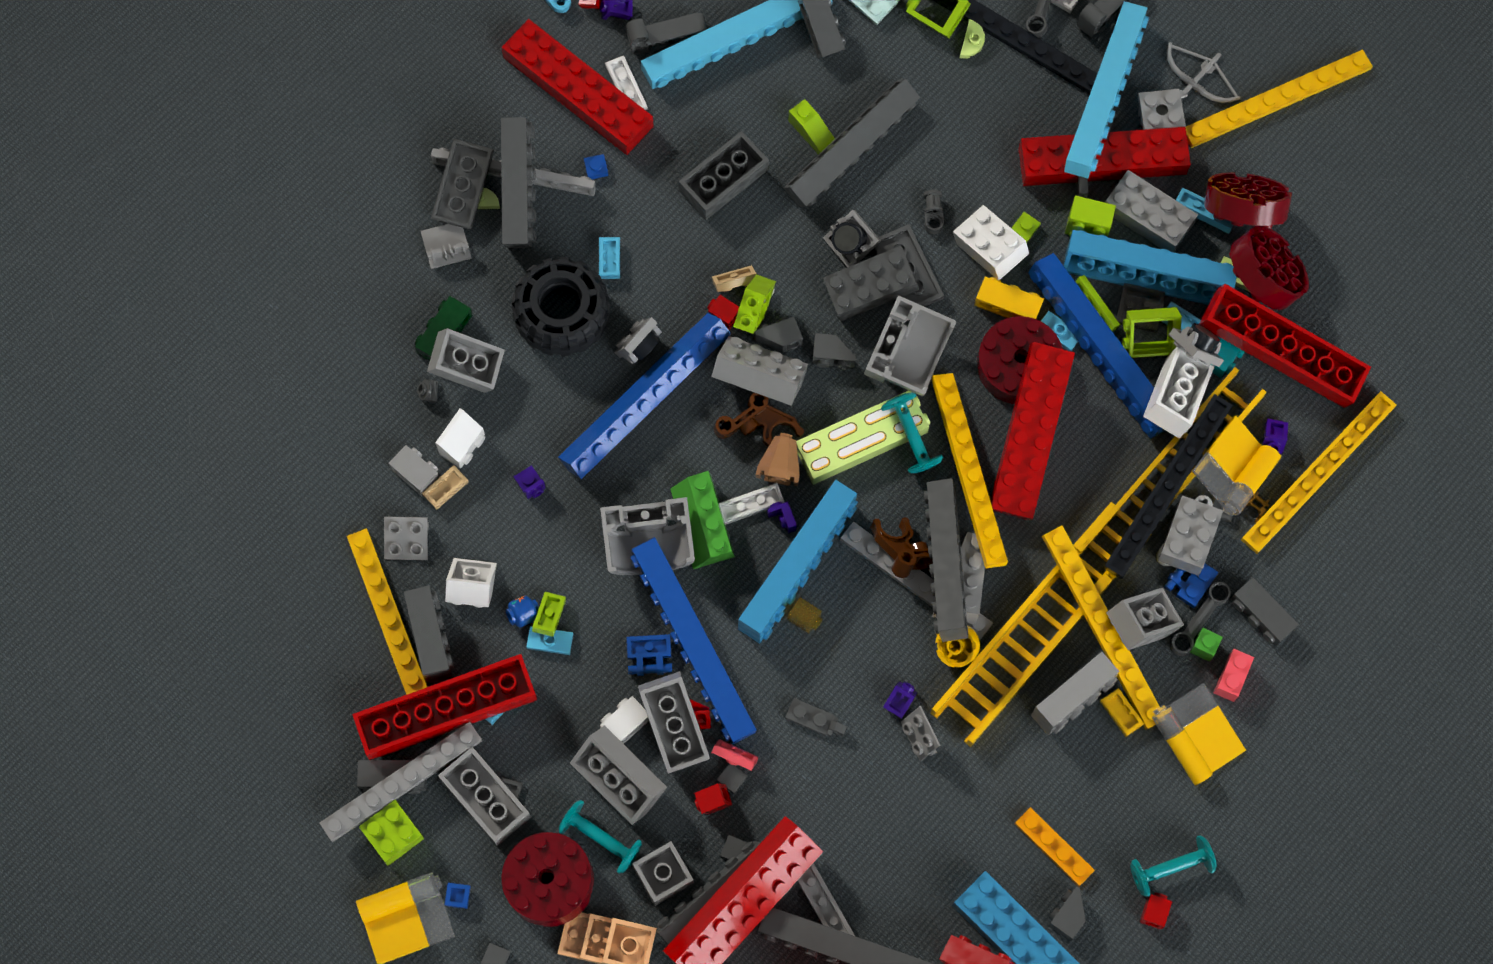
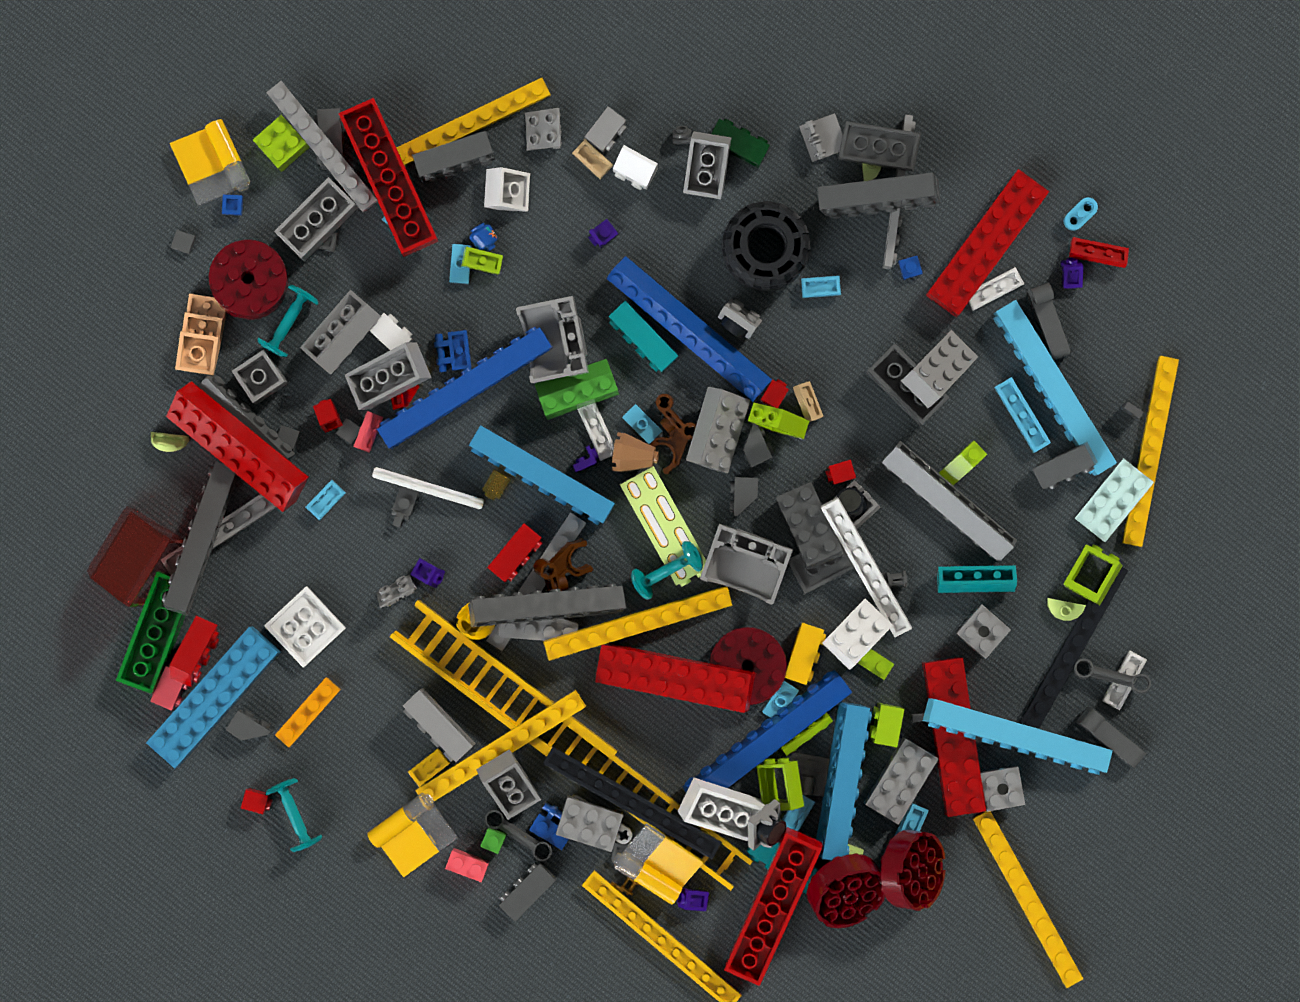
camera: 85 degrees right, 15 degrees up
(649, 446) = (646, 340): none -> teal brick
(710, 136) = (939, 369): none -> light grey brick
(746, 455) = (642, 424): none -> medium azure plate
(763, 66) = (1022, 415): none -> medium azure plate
(804, 690) = (428, 488): none -> white axle
(810, 809) = (325, 500): none -> medium azure plate
(813, 250) = (840, 472): none -> red brick
(883, 599) = (515, 553): none -> red brick
(916, 228) = (865, 566): none -> white plate
(937, 121) = (976, 579): none -> teal brick
(955, 842) = (305, 627): none -> white plate
(993, 118) = (983, 631): none -> light grey piece
(1206, 68) = (1054, 831): light grey piece -> none

